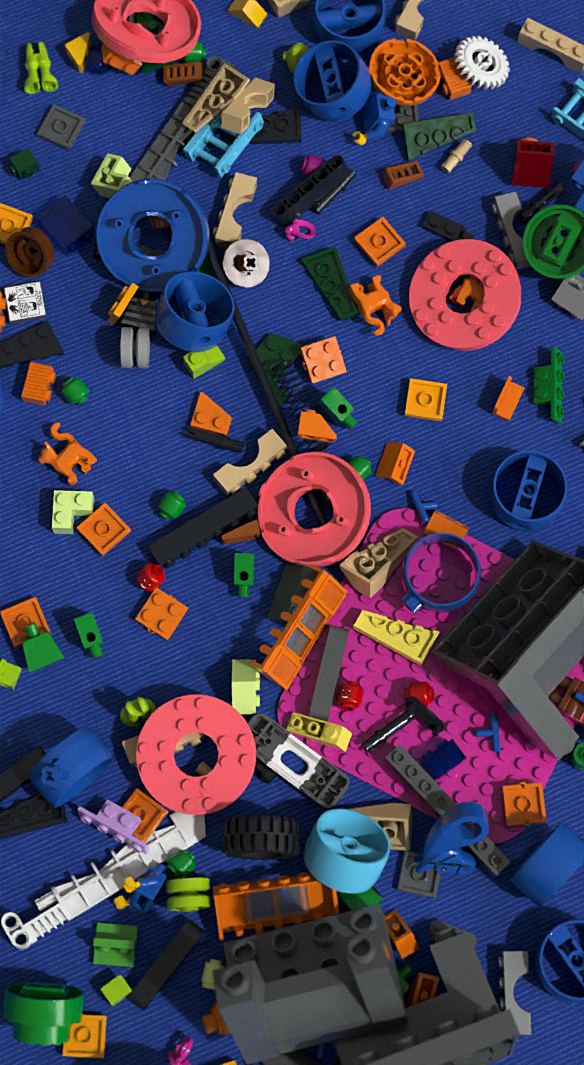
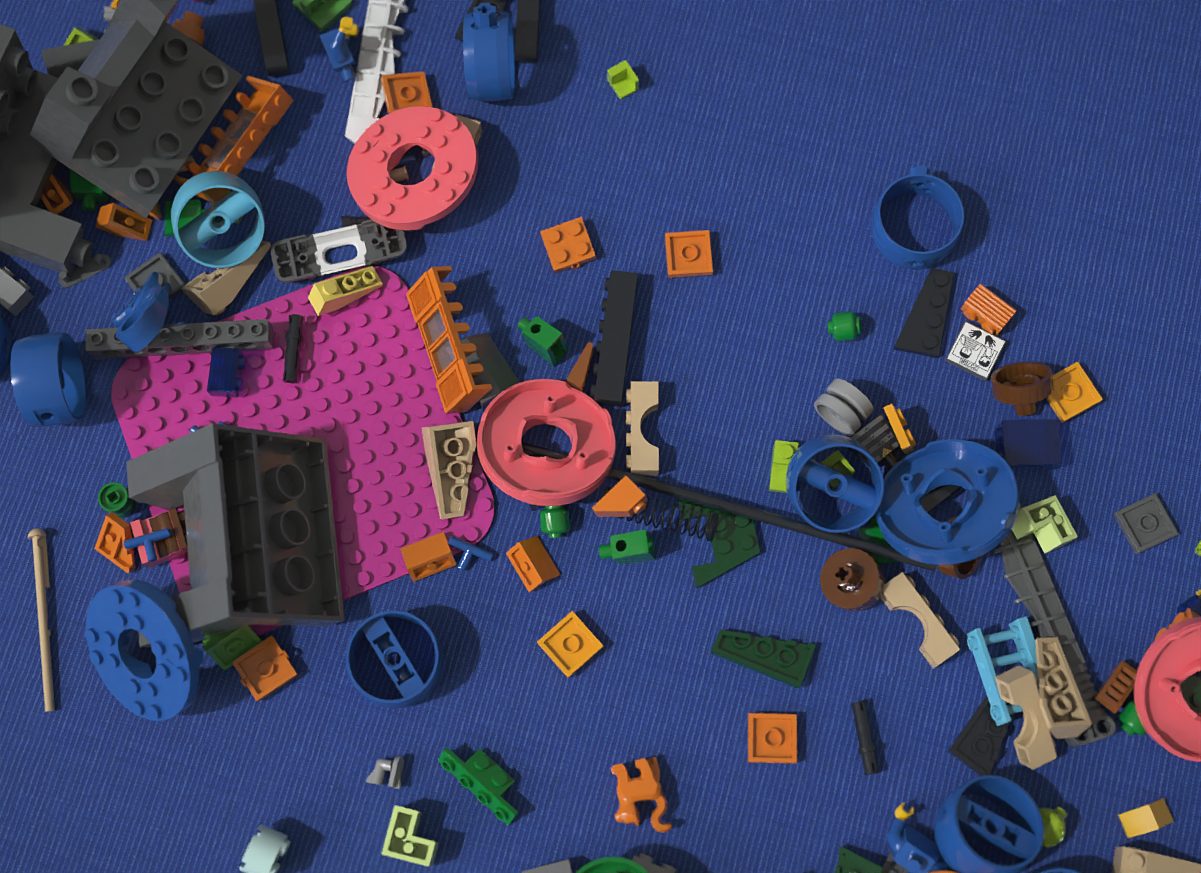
camera: 135 degrees right, 0 degrees up
(21, 615) = (657, 127): orange plate -> none
(24, 164) = (1127, 454): dark green brick -> none
(38, 384) = (879, 299): orange brick -> none
(39, 647) = (621, 118): green torso -> none
(66, 506) = (735, 236): yellowish green brick -> none
(69, 457) = (783, 276): orange animal -> none
(87, 625) = (601, 168): green torso -> none
(117, 822) = (416, 69): lavender bracket -> none
(137, 708) = (494, 152): lime piece -> none
(150, 577) = (608, 256): red head -> none
(171, 505) = (661, 327): green head -> none
(180, 864) = (338, 96): green head -> none
(188, 894) = (305, 77): lime wheel -> none
(207, 977) = (228, 53): yellowish green brick -> none
(210, 417) = (720, 430): orange wing -> none
(216, 440) = (685, 420): black pin -> none
(244, 686) = (437, 251): yellowish green brick -> none
(261, 837) = (292, 160): black tyre -> none
(293, 230) = (851, 658): dark pink piece -> none
(310, 164) = (906, 737): magenta head -> none
(310, 190) = (875, 718): black beam -> none
(322, 360) = (690, 576): orange plate -> none
(328, 673) = (388, 339): dark grey beam -> none
(350, 696) = (350, 338): red head -> none
(376, 299) = (712, 671): orange animal -> none
(393, 181) = (843, 809): dark orange slope -> none
(404, 639) = (365, 427): light yellow wing -> none
(413, 600) = (383, 461): blue cylinder -> none
(422, 691) = (298, 400): red head -> none
(426, 715) = (291, 384): black piece -> none
(434, 280) = (629, 812): coral piece -> none
(445, 228) = (734, 820): black hinge -> none
(508, 400) = (503, 726): orange panel -> none
(524, 804) = (125, 411): orange plate -> none

